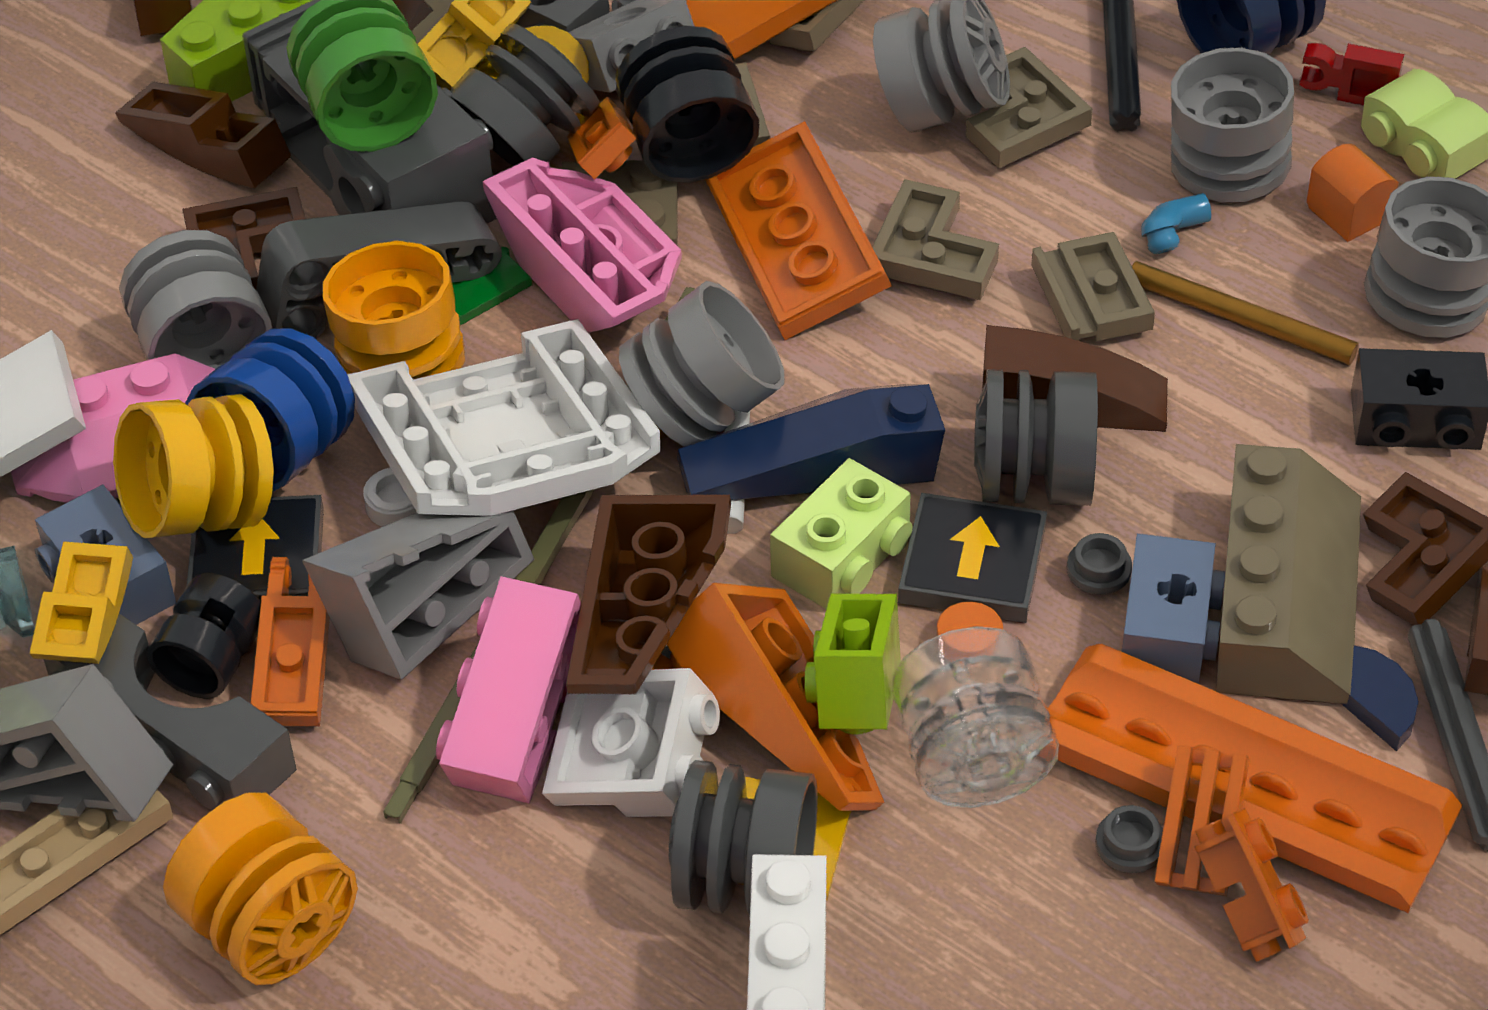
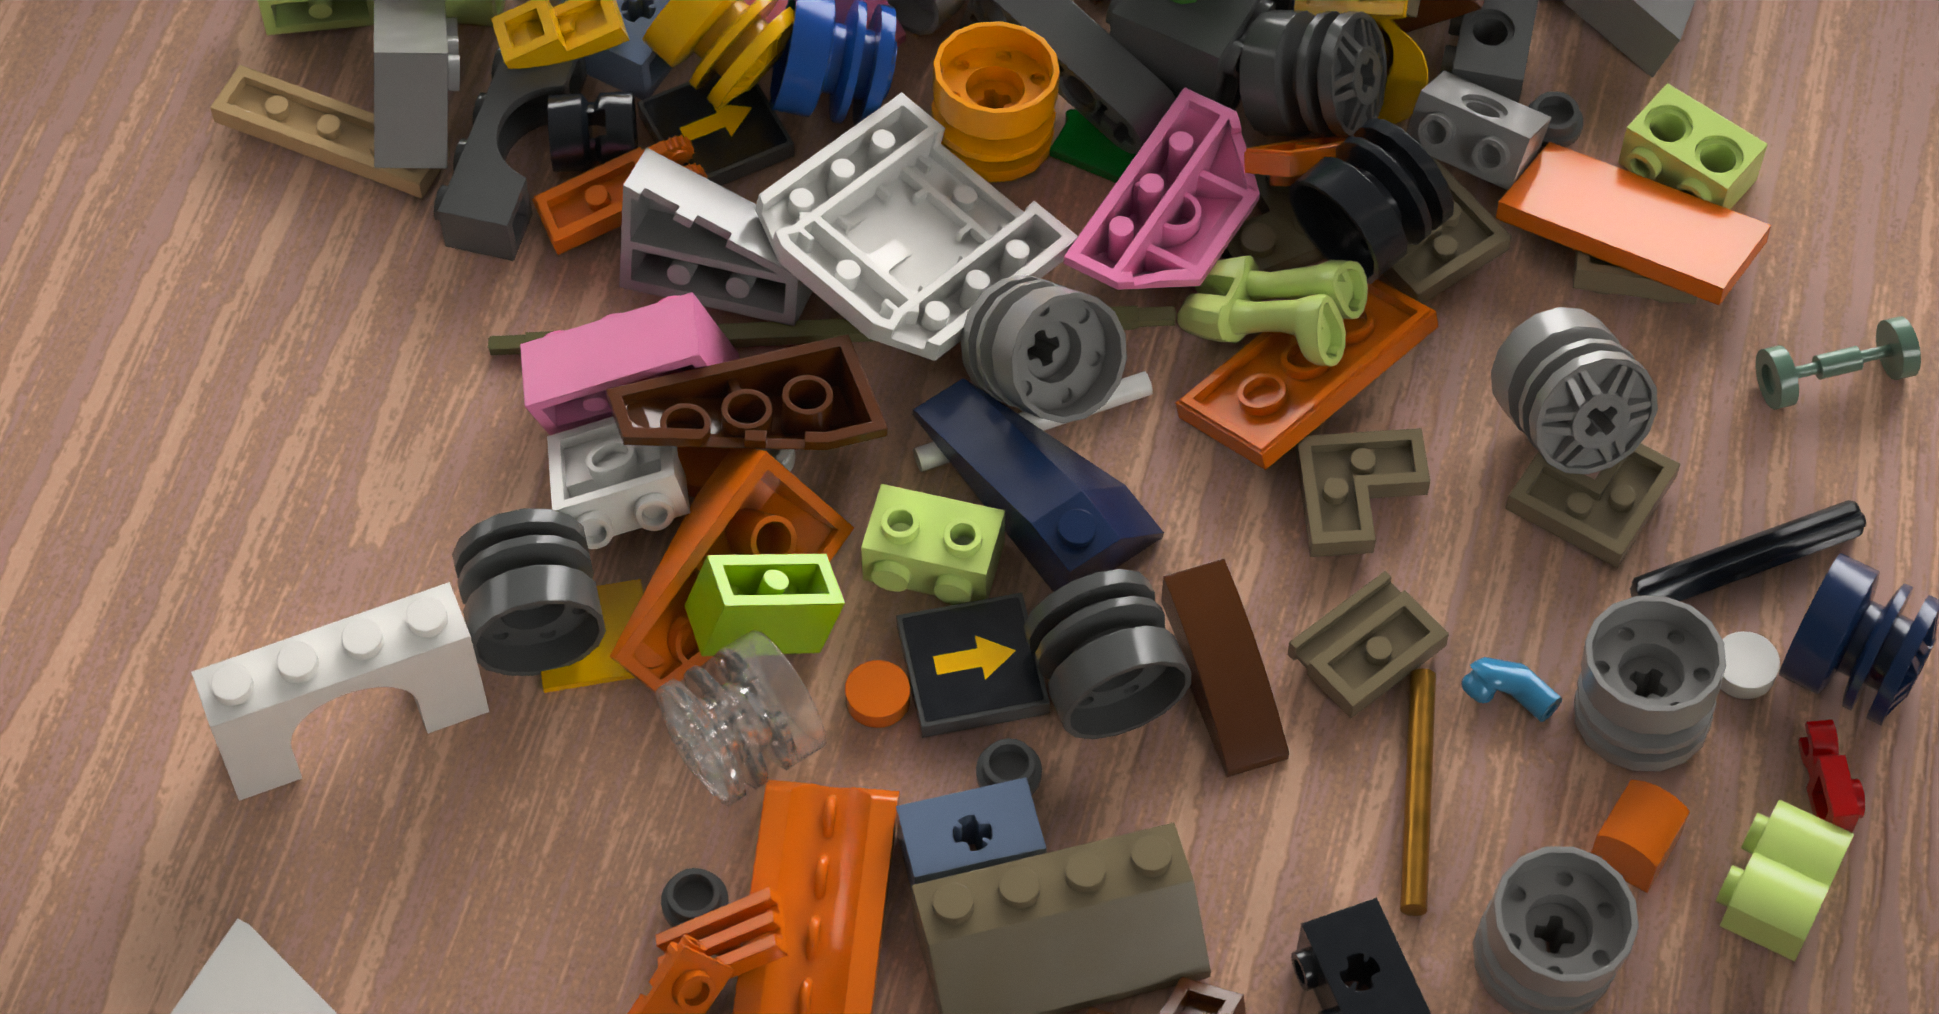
camera: 65 degrees right, 10 degrees up
(260, 888) = (342, 277): light orange wheel -> none
(717, 256) = (1322, 294): none -> yellowish green piece

